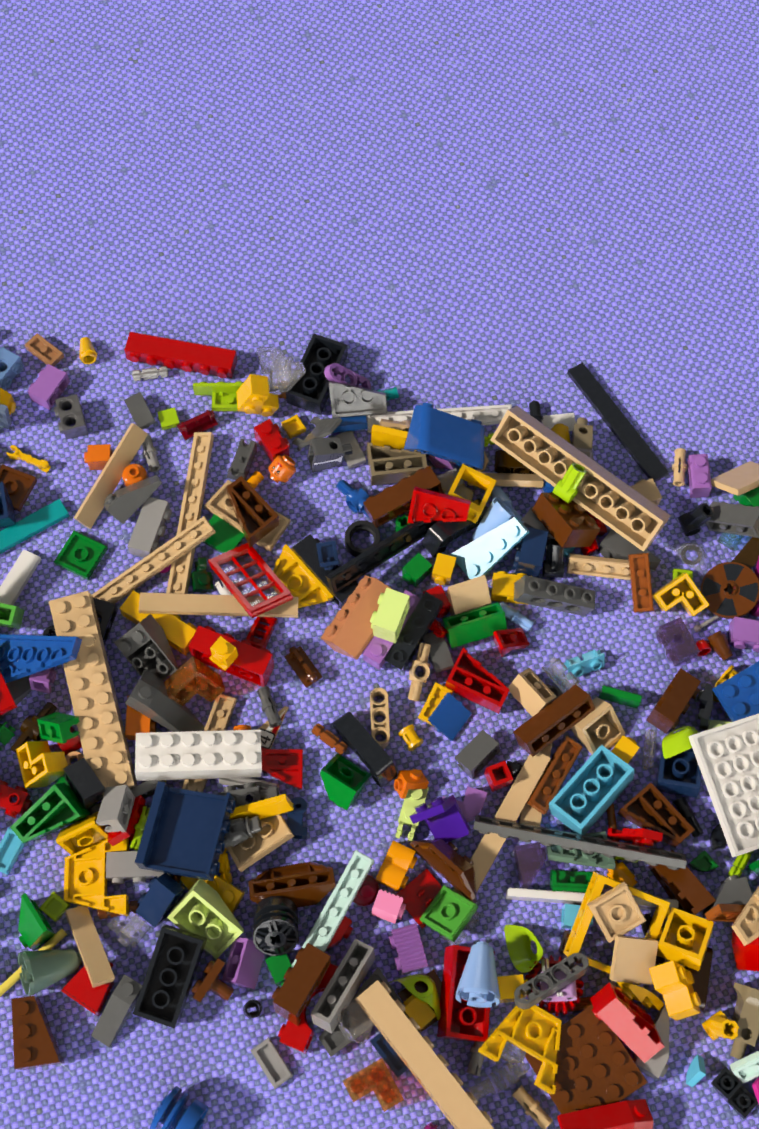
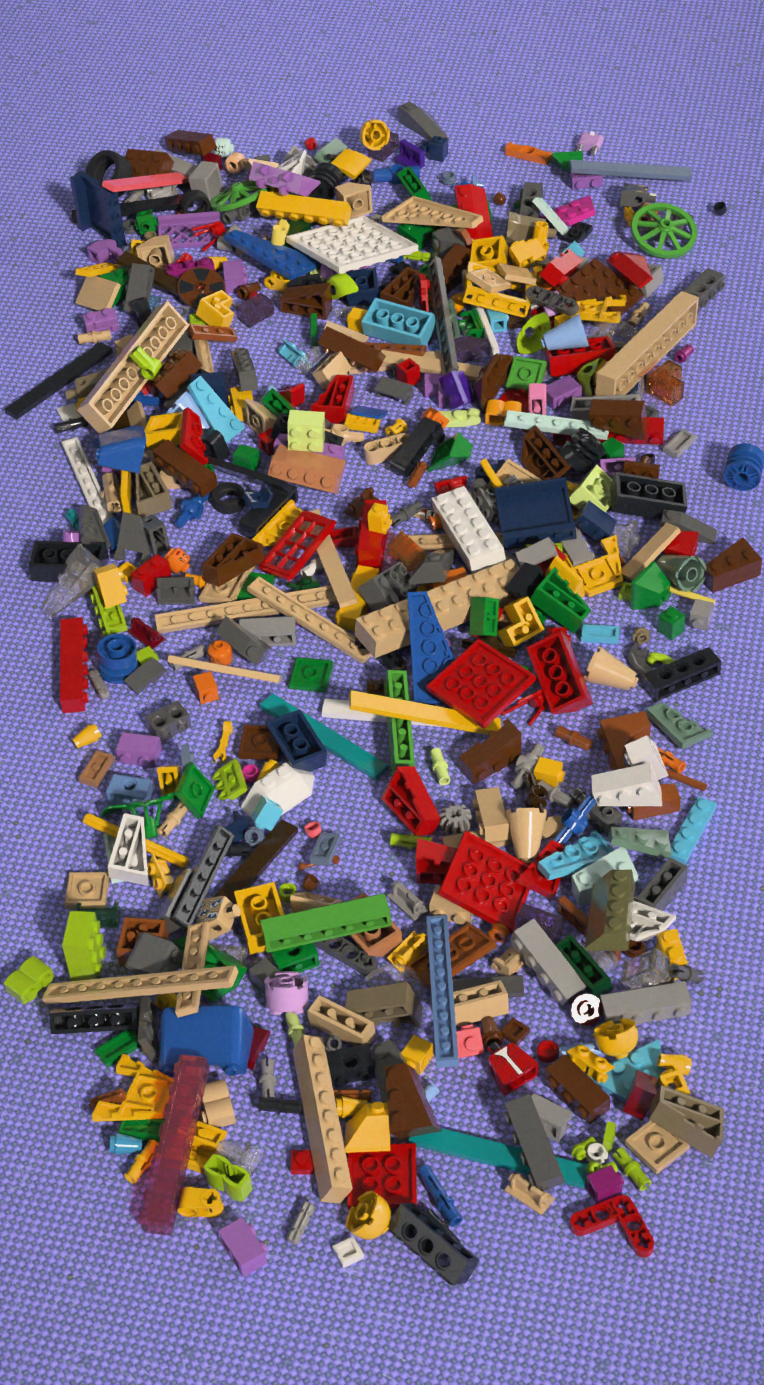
camera: 100 degrees left, 20 degrees down
(33, 607) = (376, 687): none -> dark brown tile
(162, 387) = (116, 658): none -> blue wheel
(443, 569) = (235, 439): yellow brick -> none

